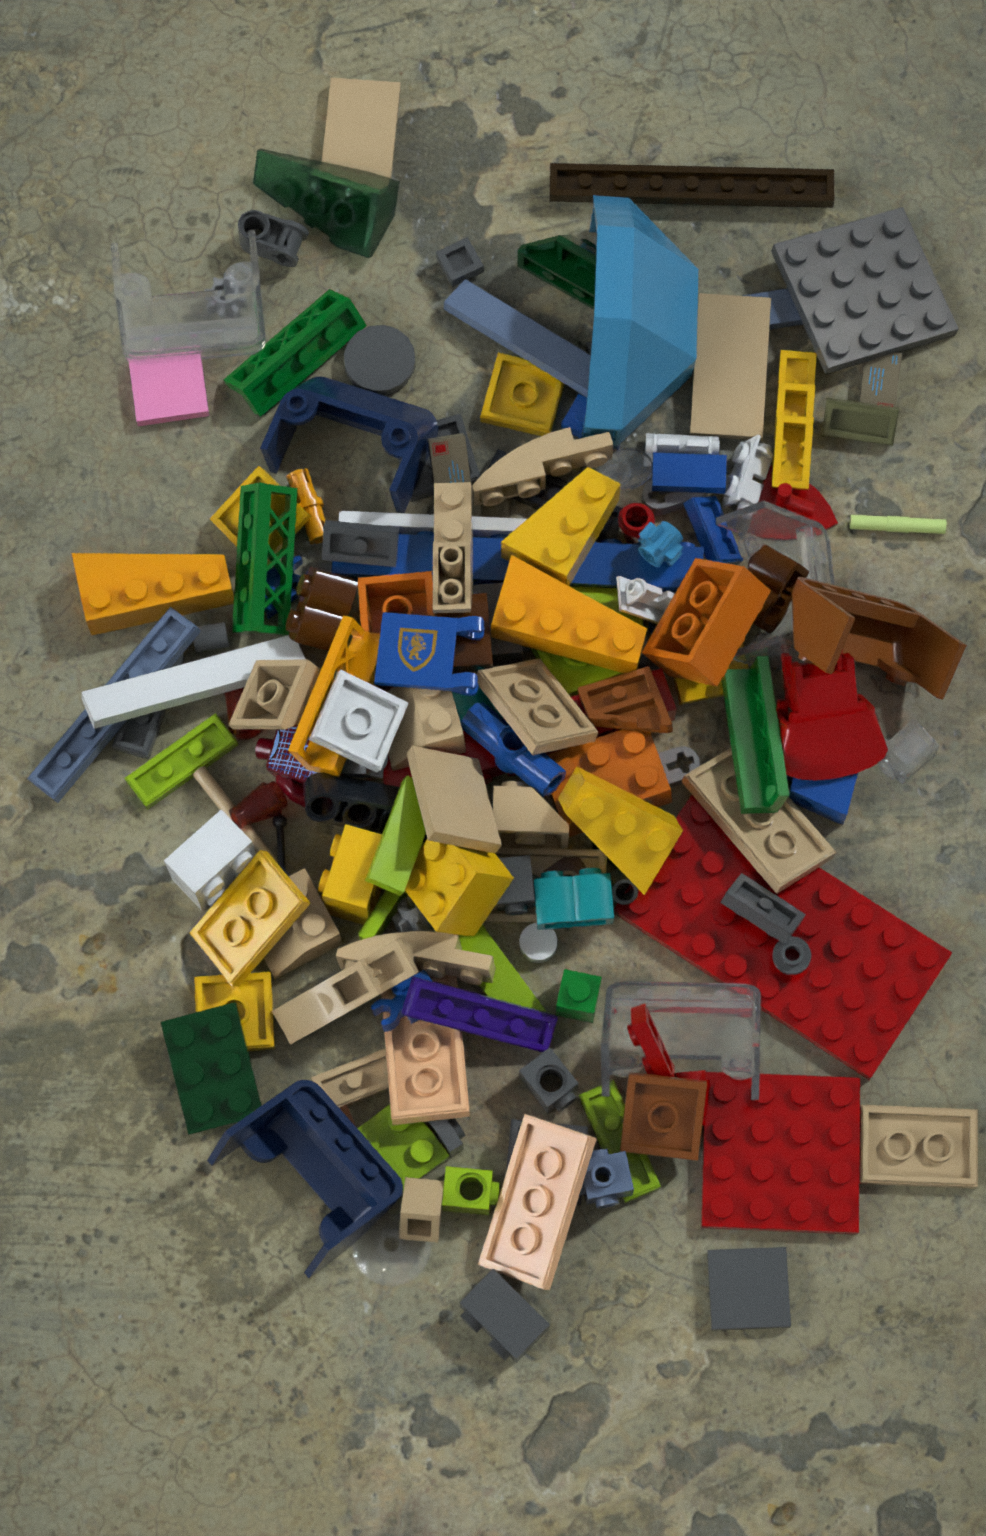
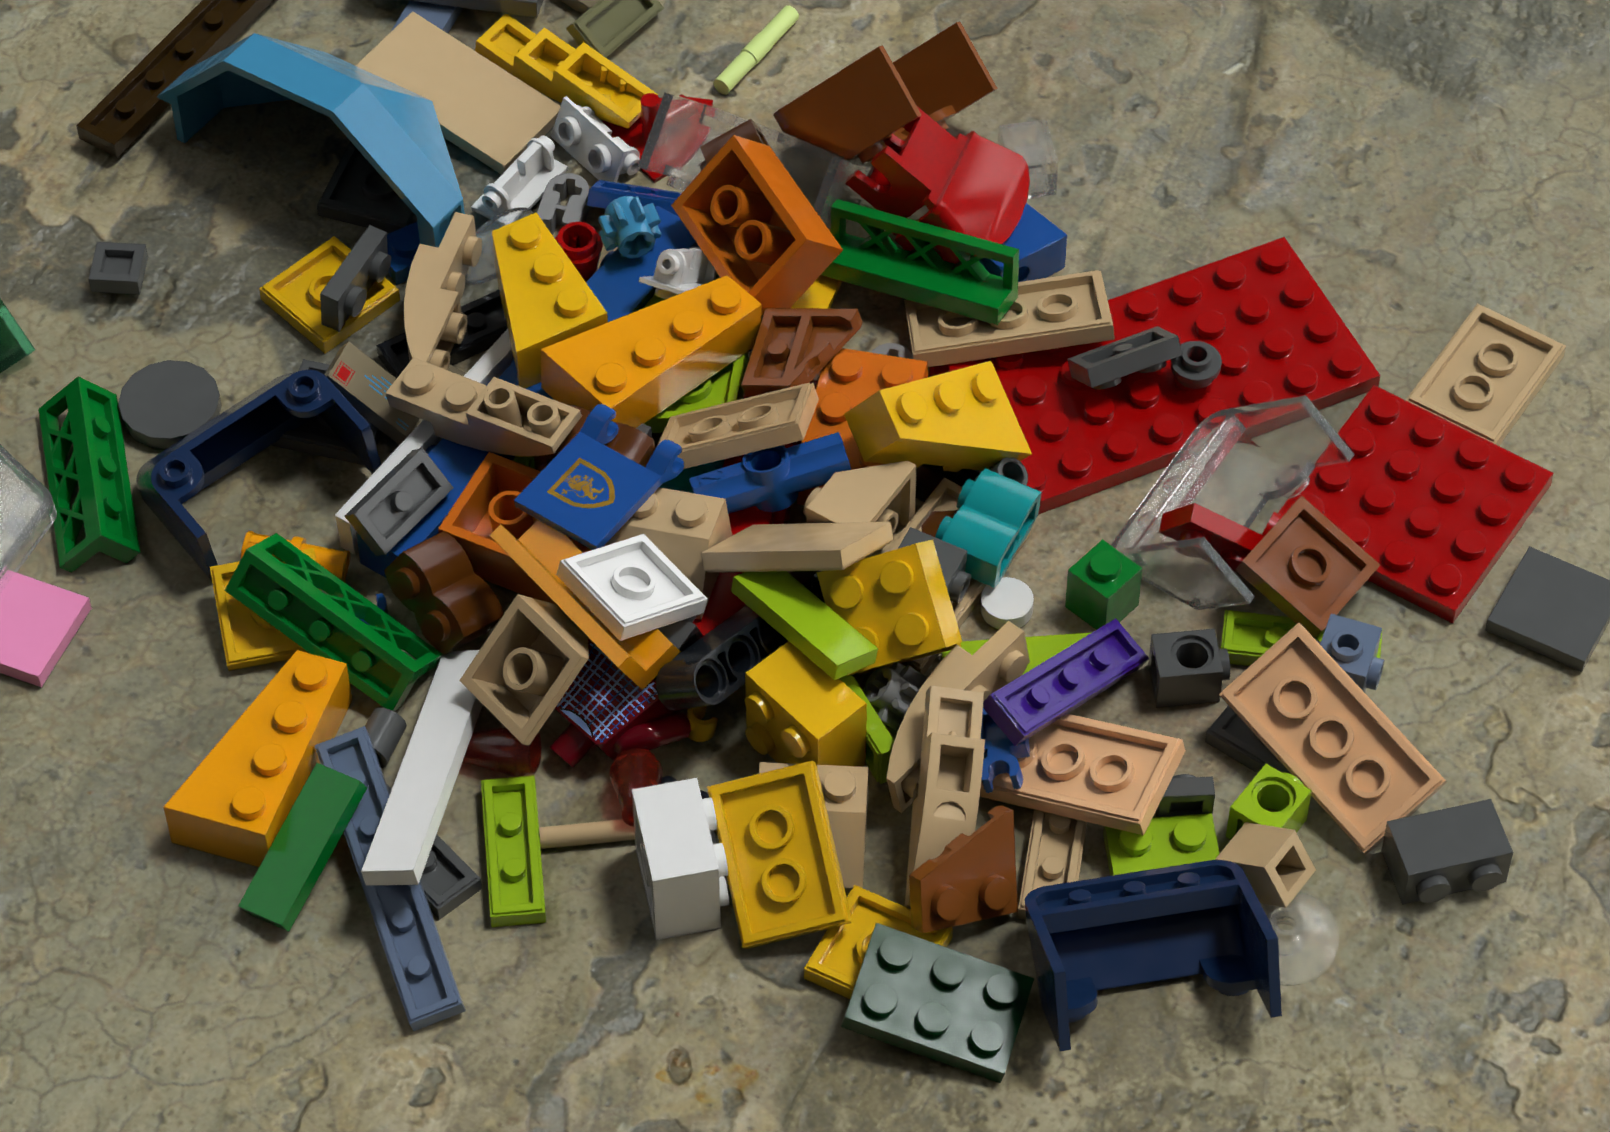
camera: 60 degrees left, 20 degrees down
(101, 645) = (302, 847): none -> green tile
(299, 1037) = (969, 878): none -> dark orange wing
(520, 335) = (275, 247): sand blue tile -> none
(542, 404) = (349, 285): none -> dark grey plate
(562, 263) = (245, 157): dark green wedge -> none
(689, 473) = (557, 180): blue tile -> none

